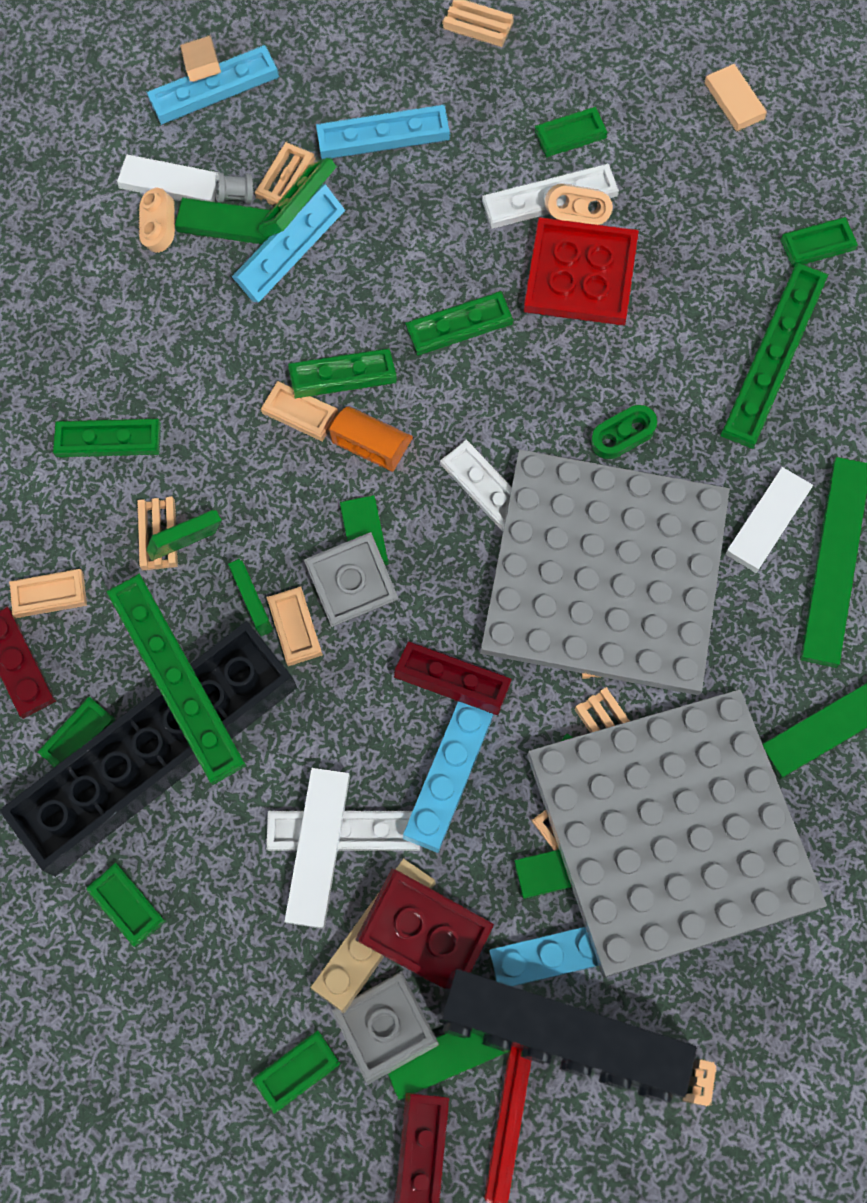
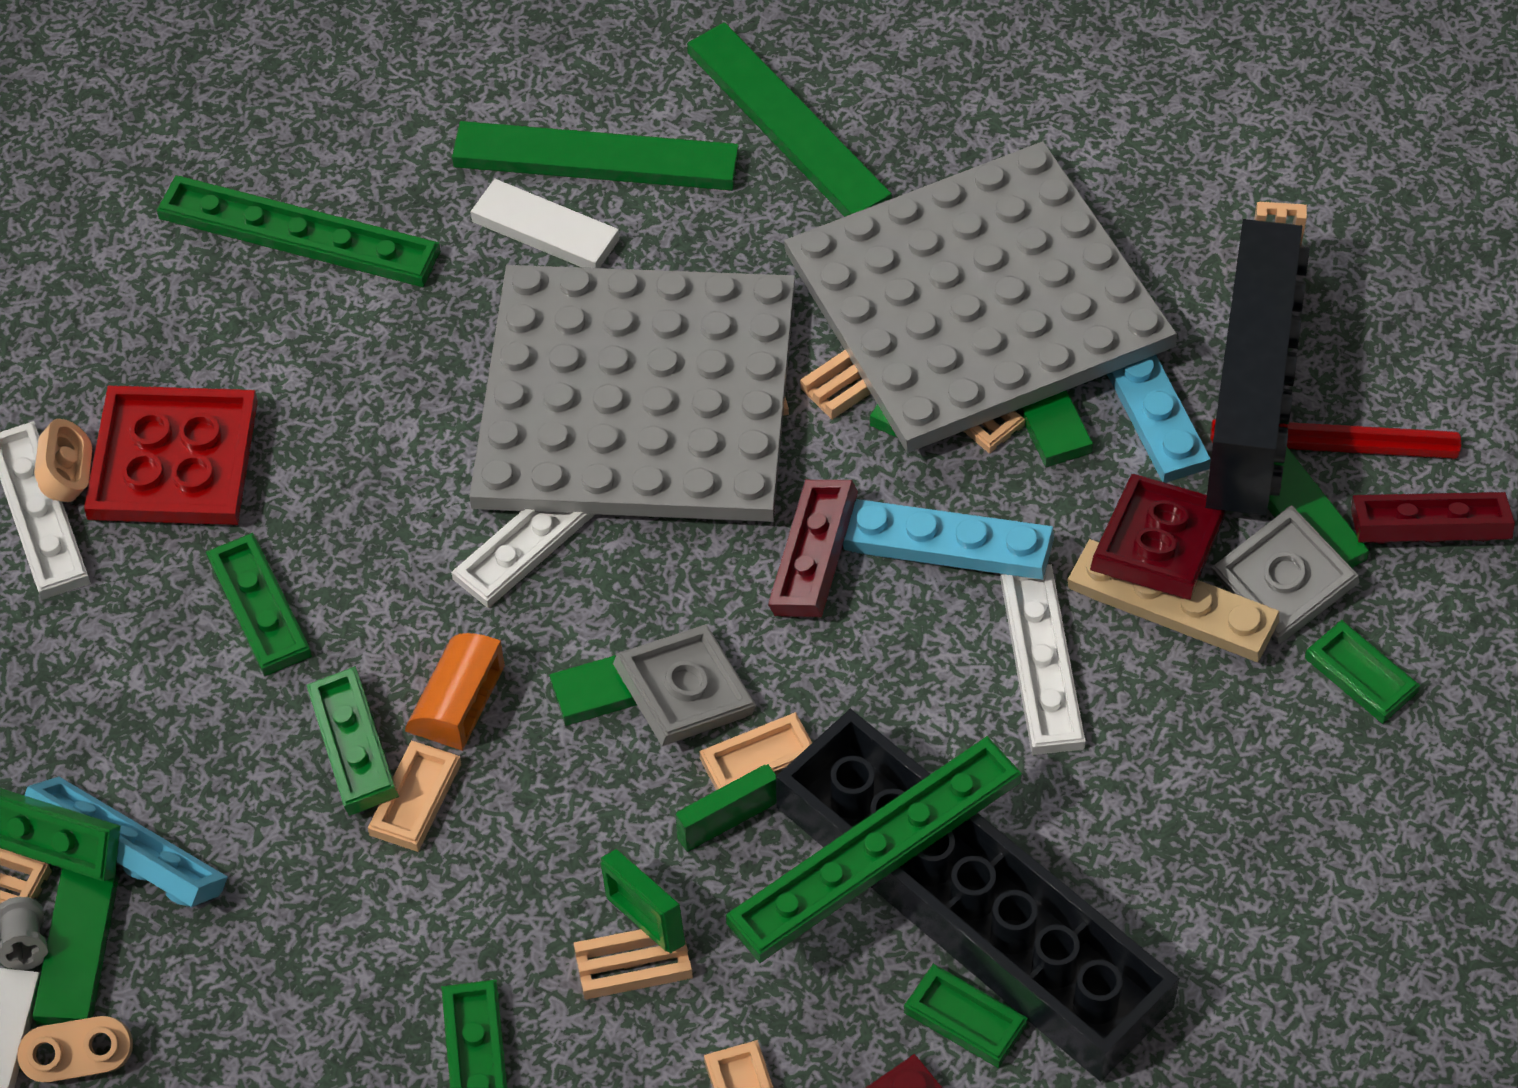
camera: 100 degrees left, 15 degrees down
(125, 905) = (1193, 909): green tile -> none
(317, 848) = (1074, 671): white tile -> none
(622, 433) = (434, 387): green plate -> none
(819, 242) = (121, 190): green tile -> none

